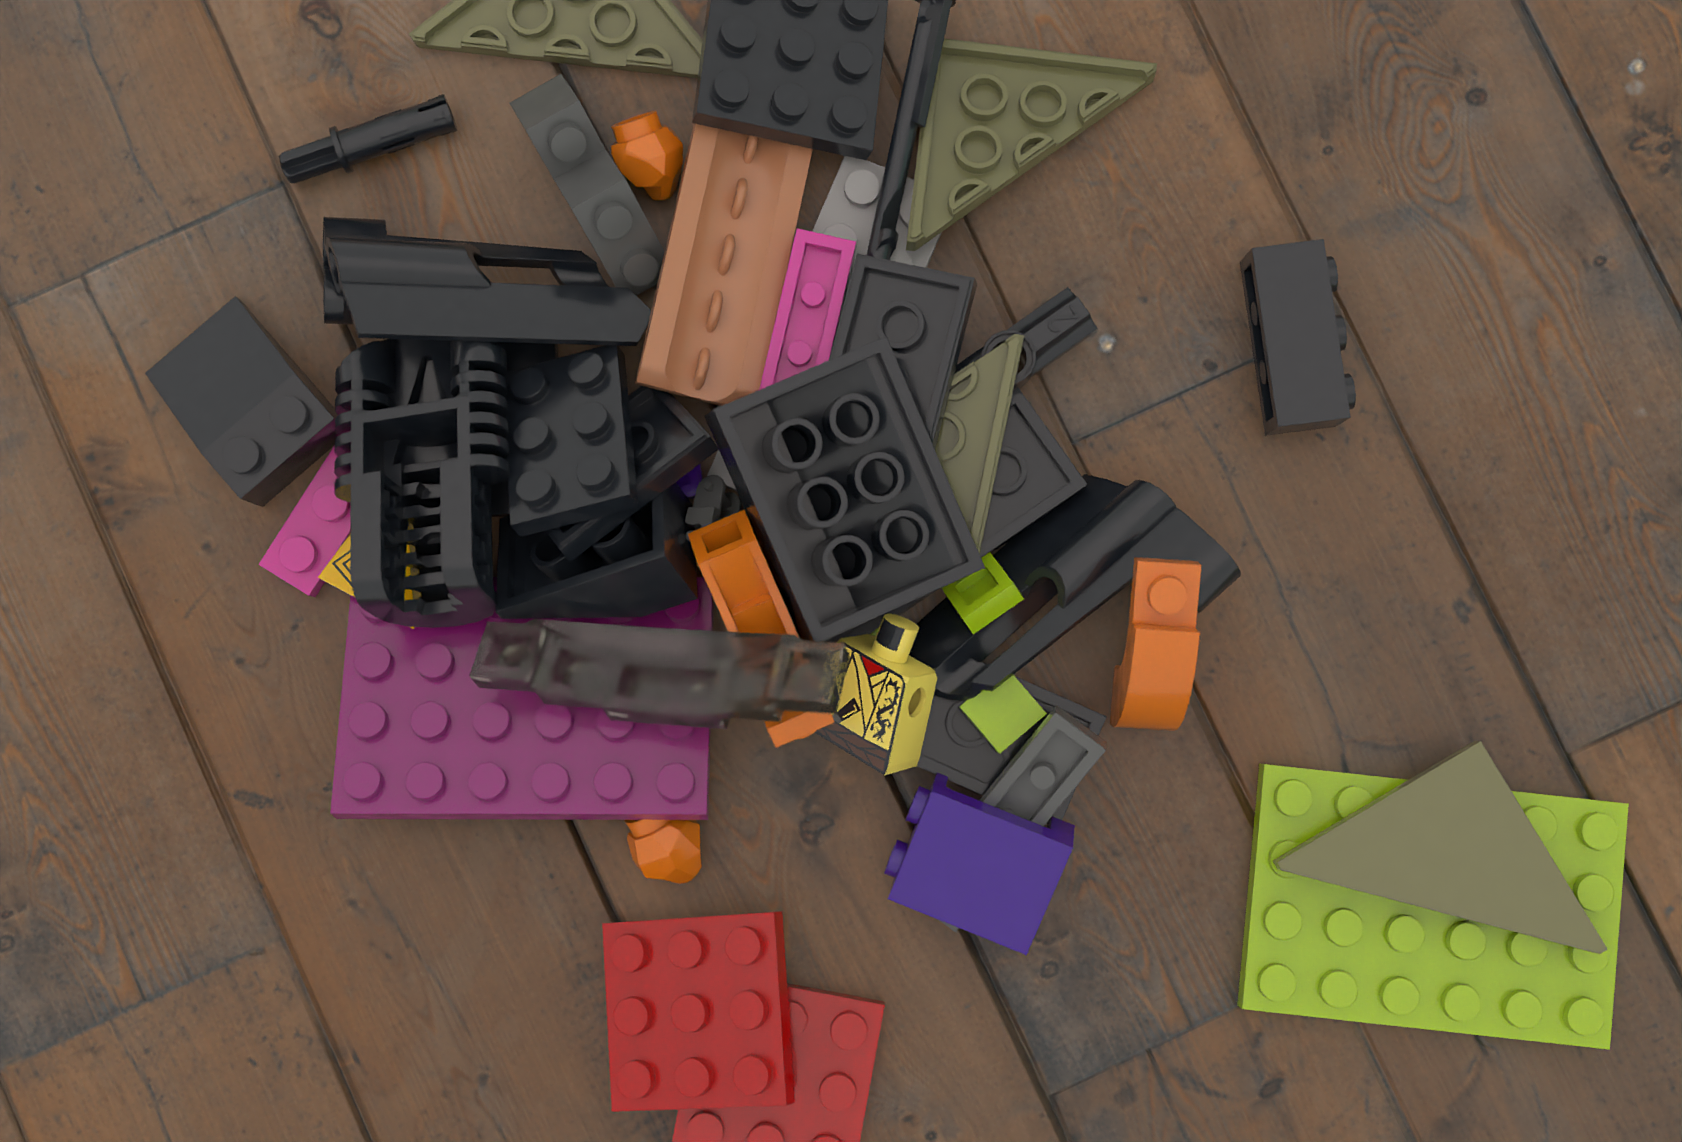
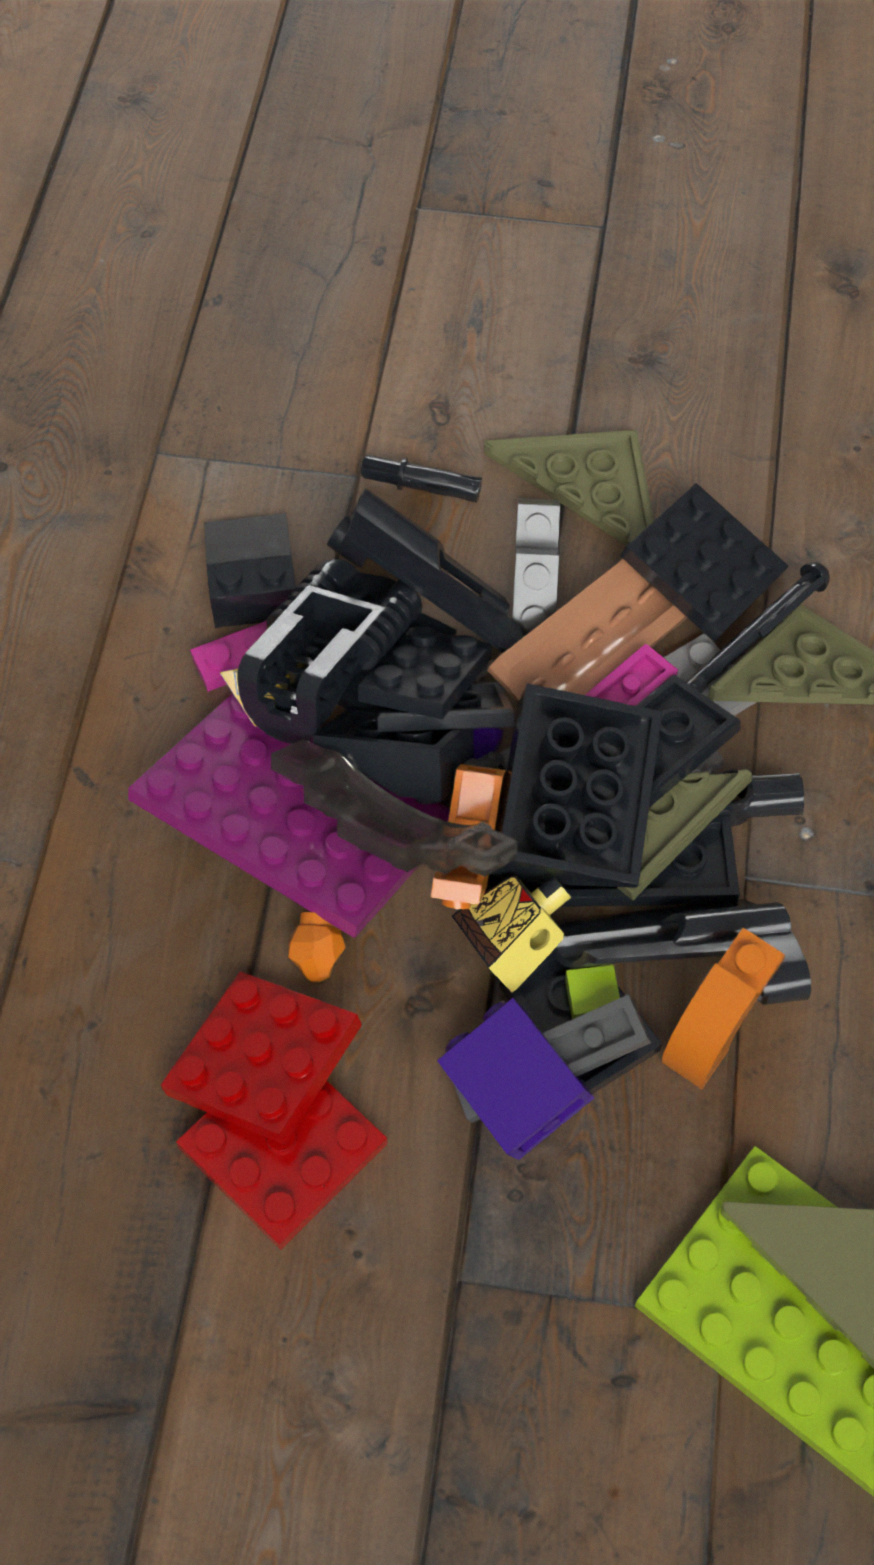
camera: 30 degrees right, 25 degrees down
(648, 154) = (580, 564): orange rock -> none
(983, 594) = (626, 913): lime tile -> none

